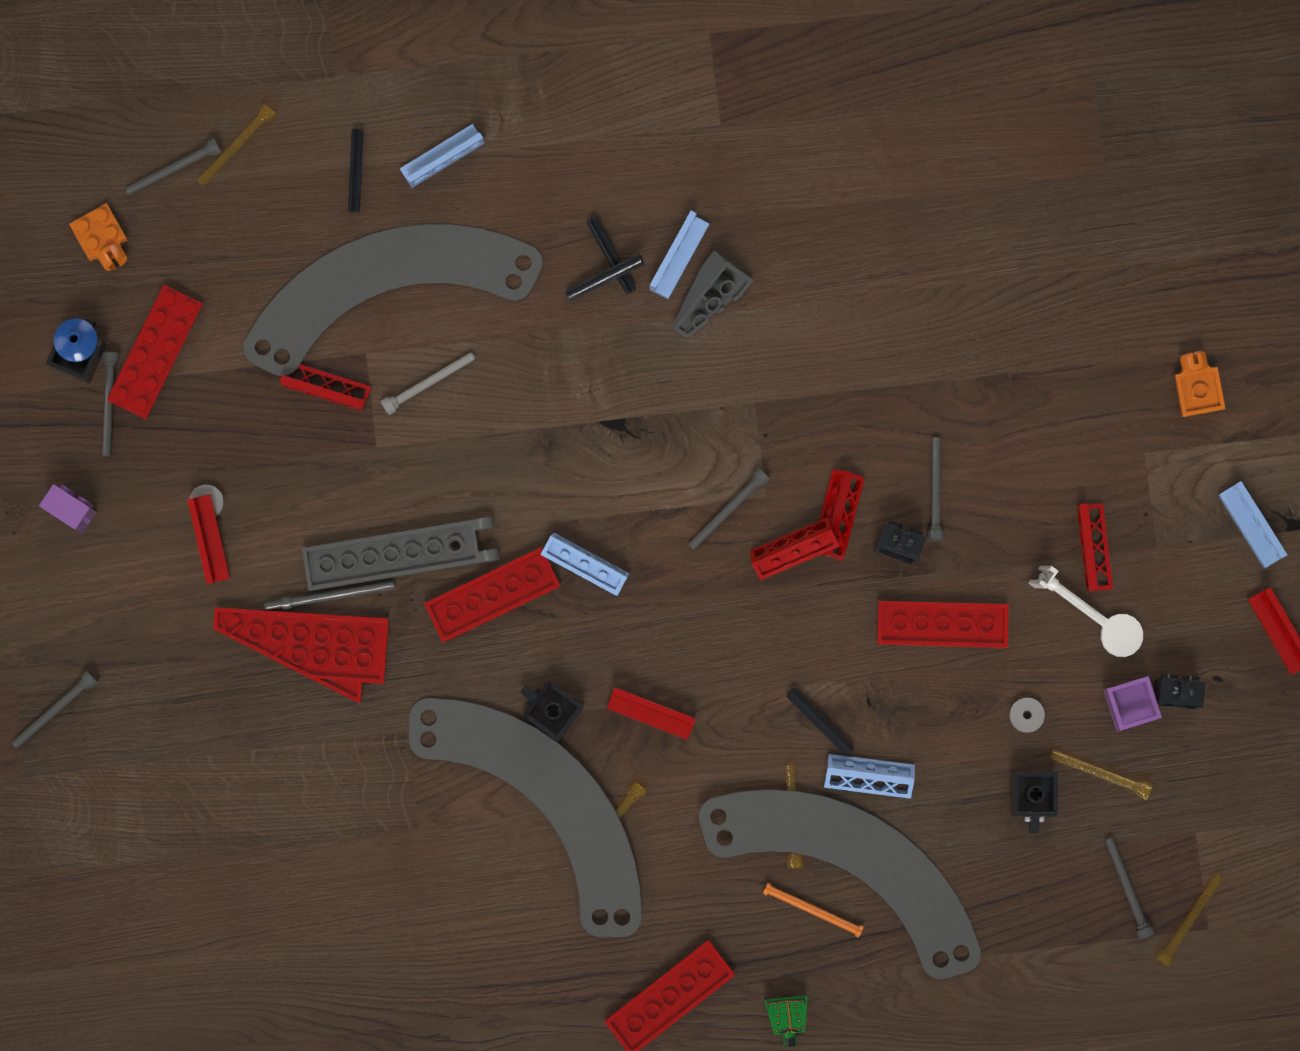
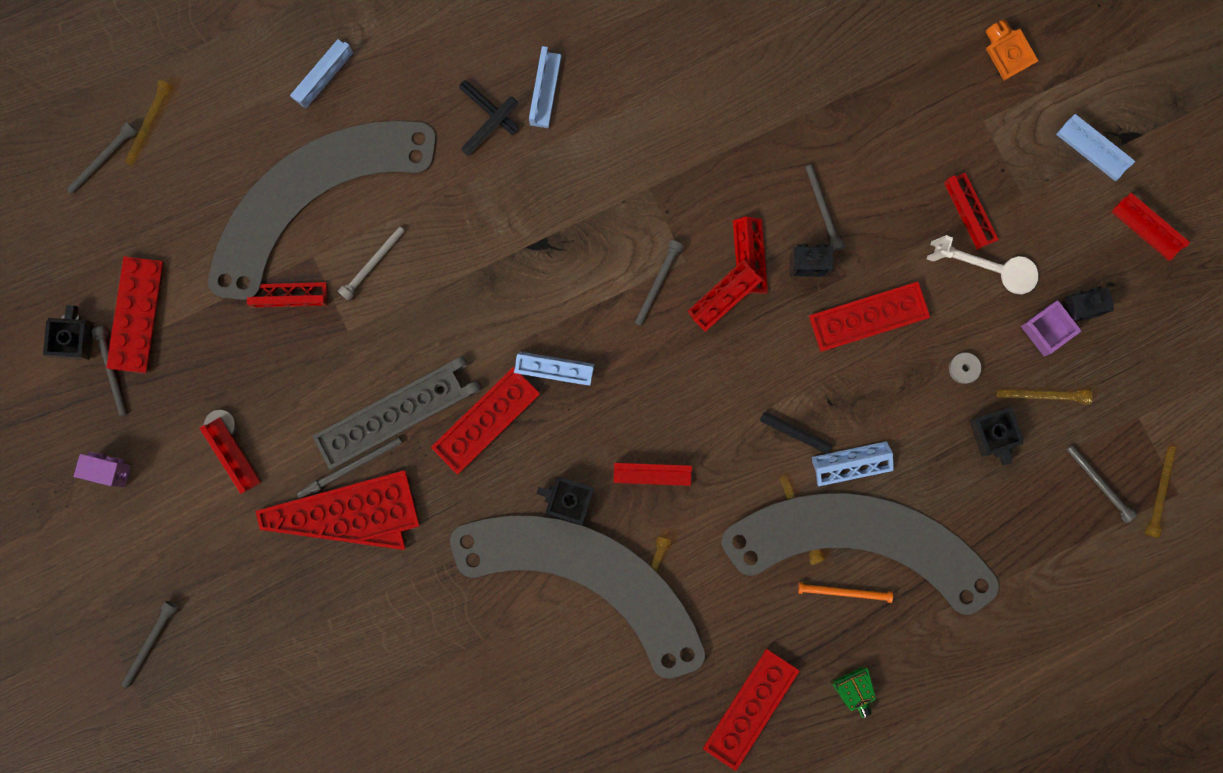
camera: 10 degrees left, 0 degrees up
(83, 347) = (69, 328): blue dish -> none
(101, 237) = (59, 235): orange plate -> none
(355, 170) = (254, 110): black axle -> none
(713, 288) = (582, 106): dark grey wedge -> none

